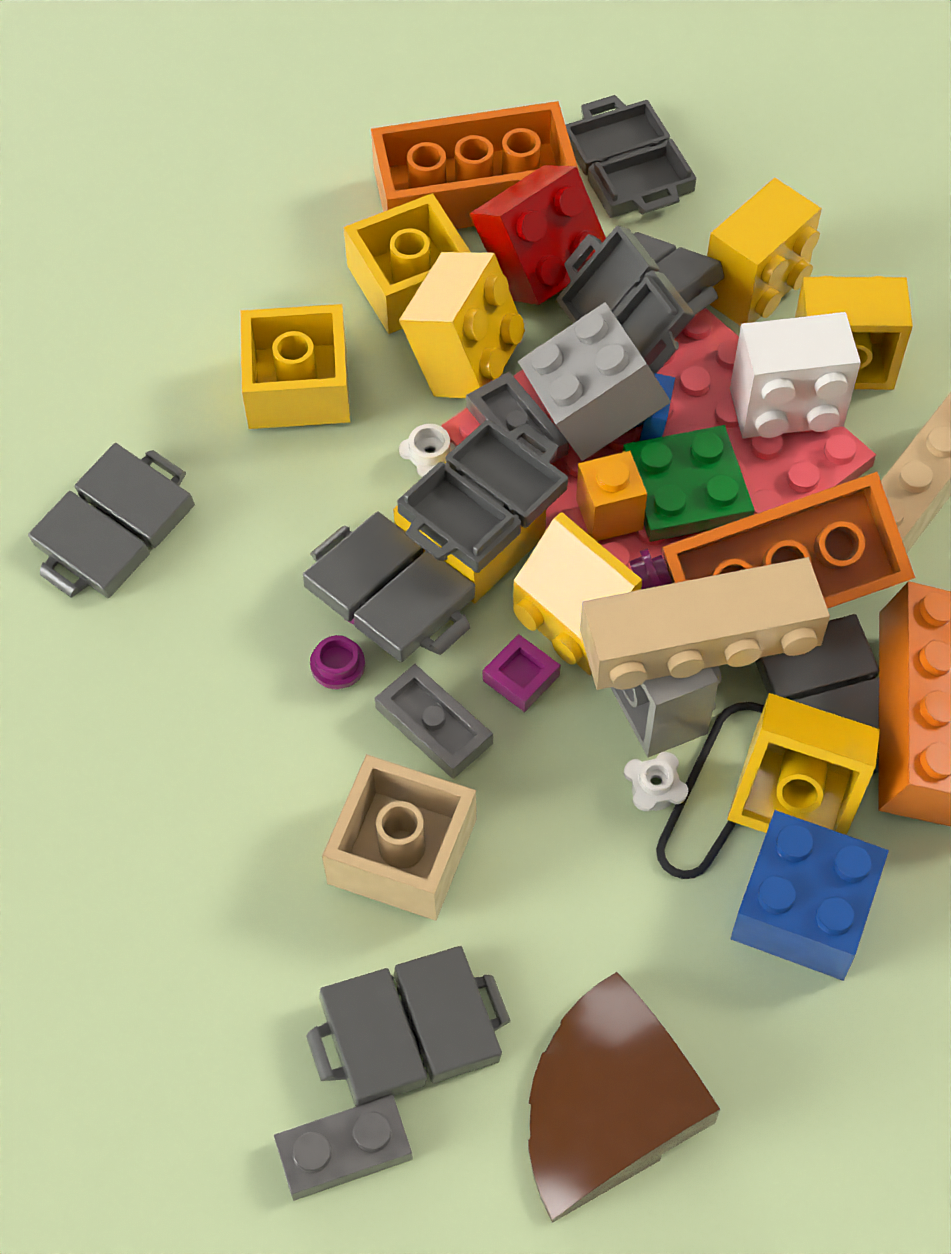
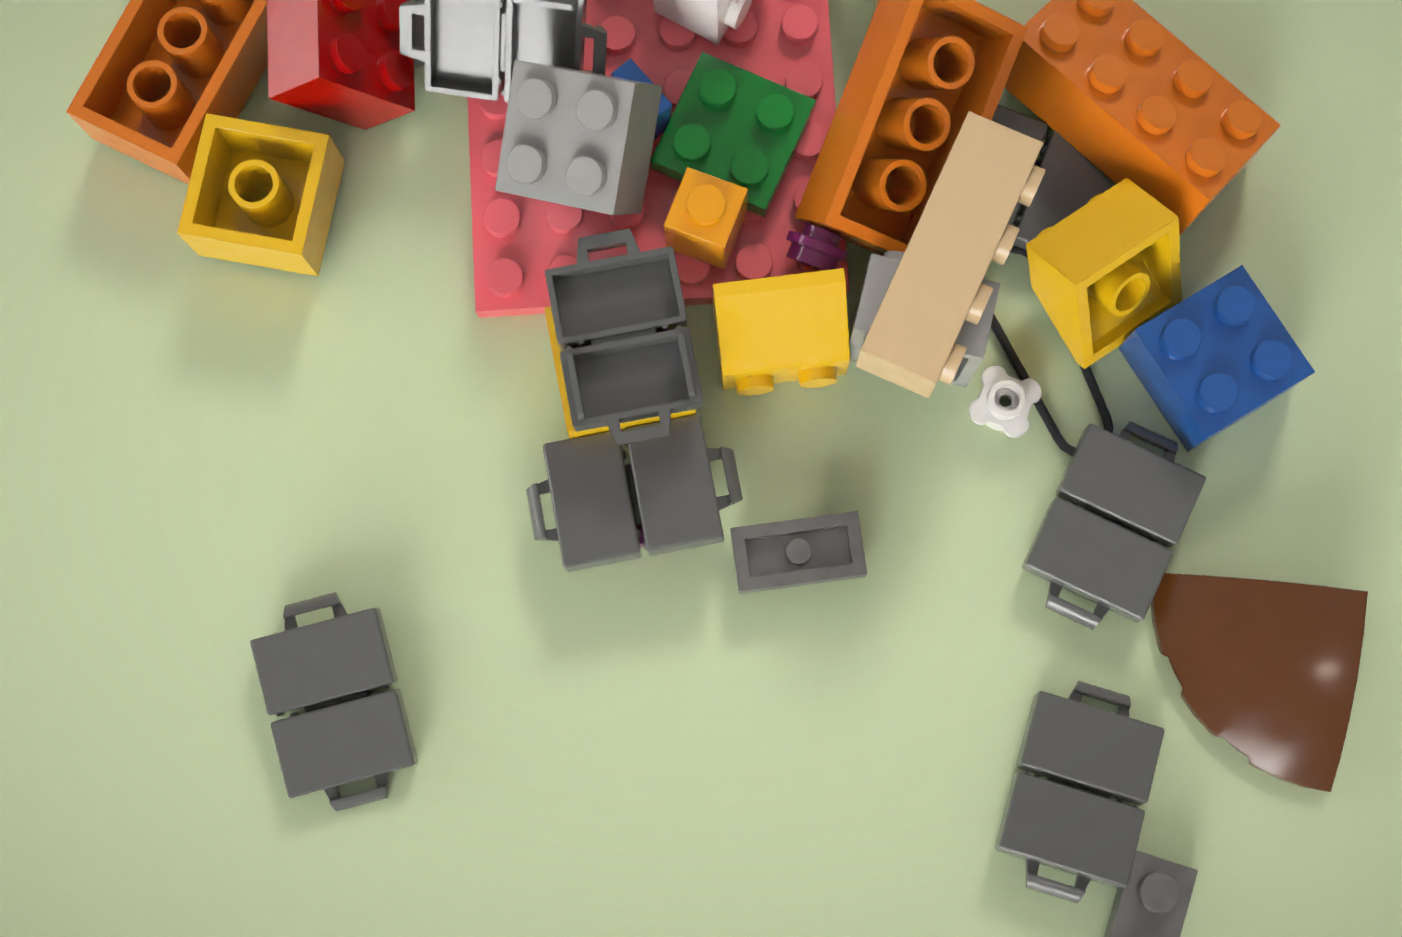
camera: 50 degrees left, 20 degrees up
(294, 366) = (301, 399): yellow brick -> none
(337, 662) = (665, 595): magenta plate -> none
(400, 837) = (909, 671): tan brick -> none
(426, 438) = (480, 326): white plate -> none
(462, 323) = (395, 204): yellow brick -> none
(511, 406) = (539, 237): flat silver plate -> none
(521, 672) = (808, 436): magenta plate -> none
(603, 922) = (1101, 547): none -> dark grey piece

